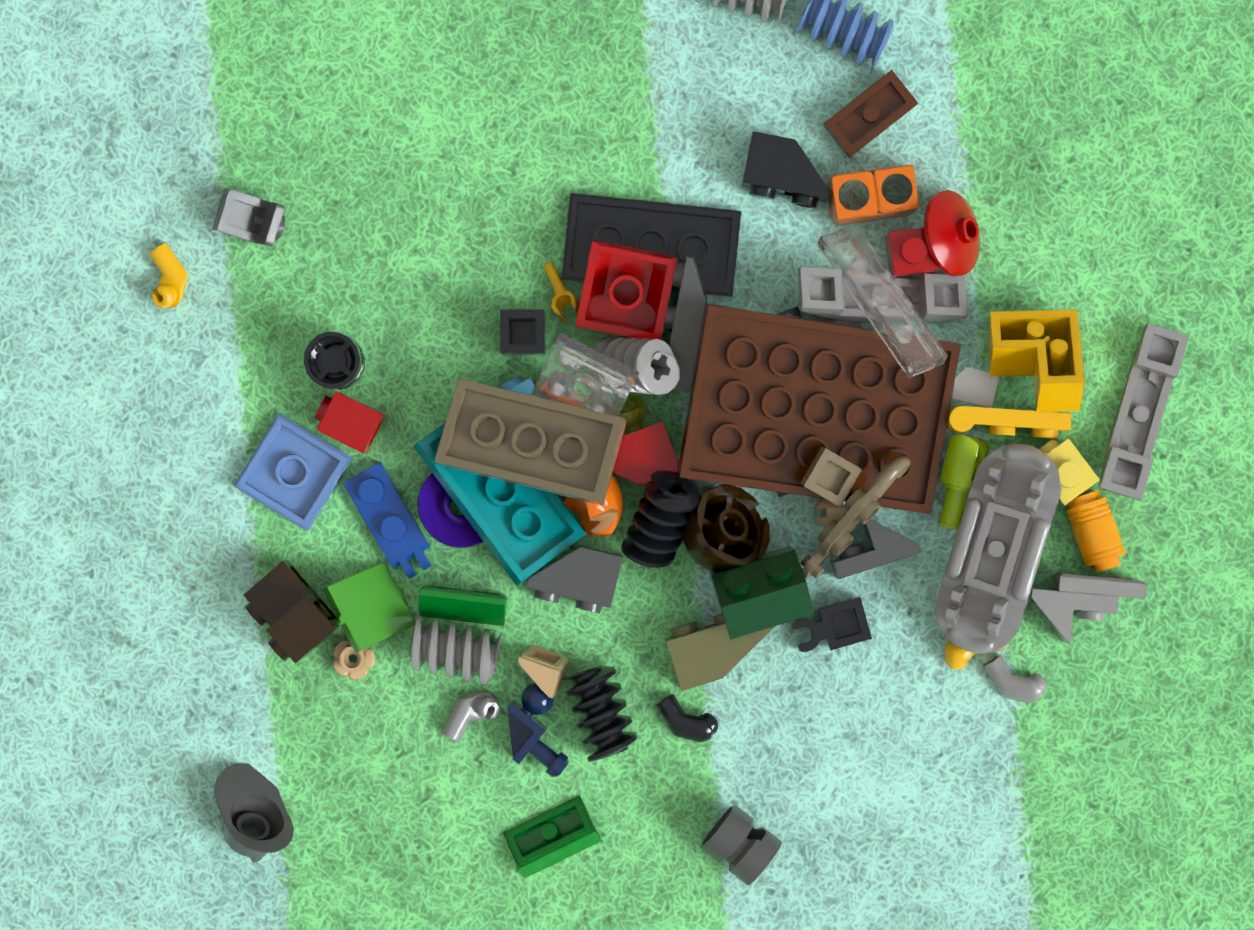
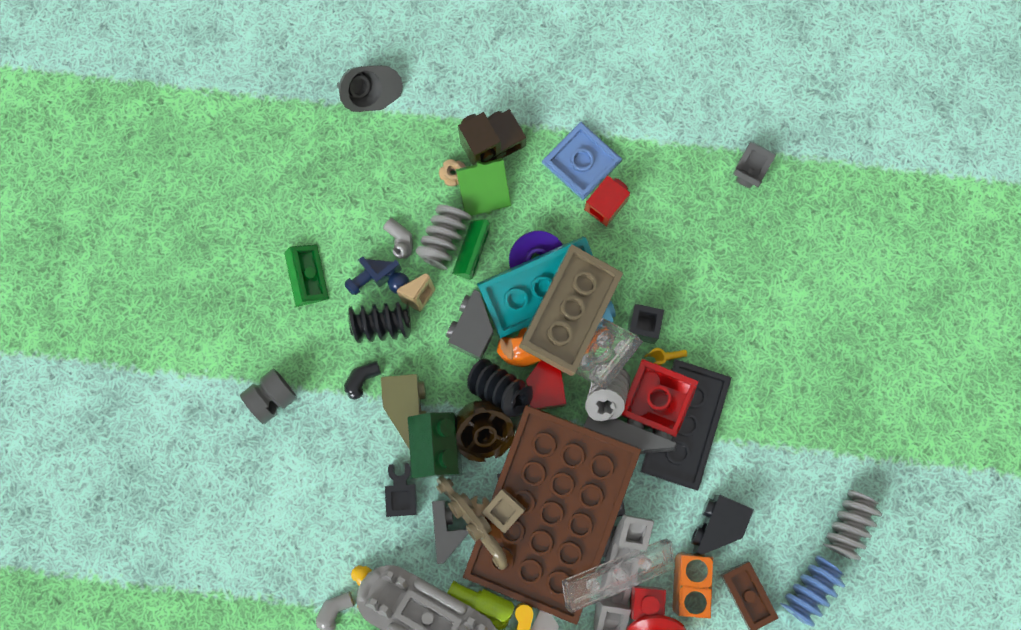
camera: 105 degrees right, 10 degrees down
(172, 280) = (722, 112): yellow arm -> none
(334, 360) = (650, 198): black wheel -> none
(388, 518) = (538, 214): blue hinge -> none
(634, 416) = (572, 385): clear yellow hinge -> none

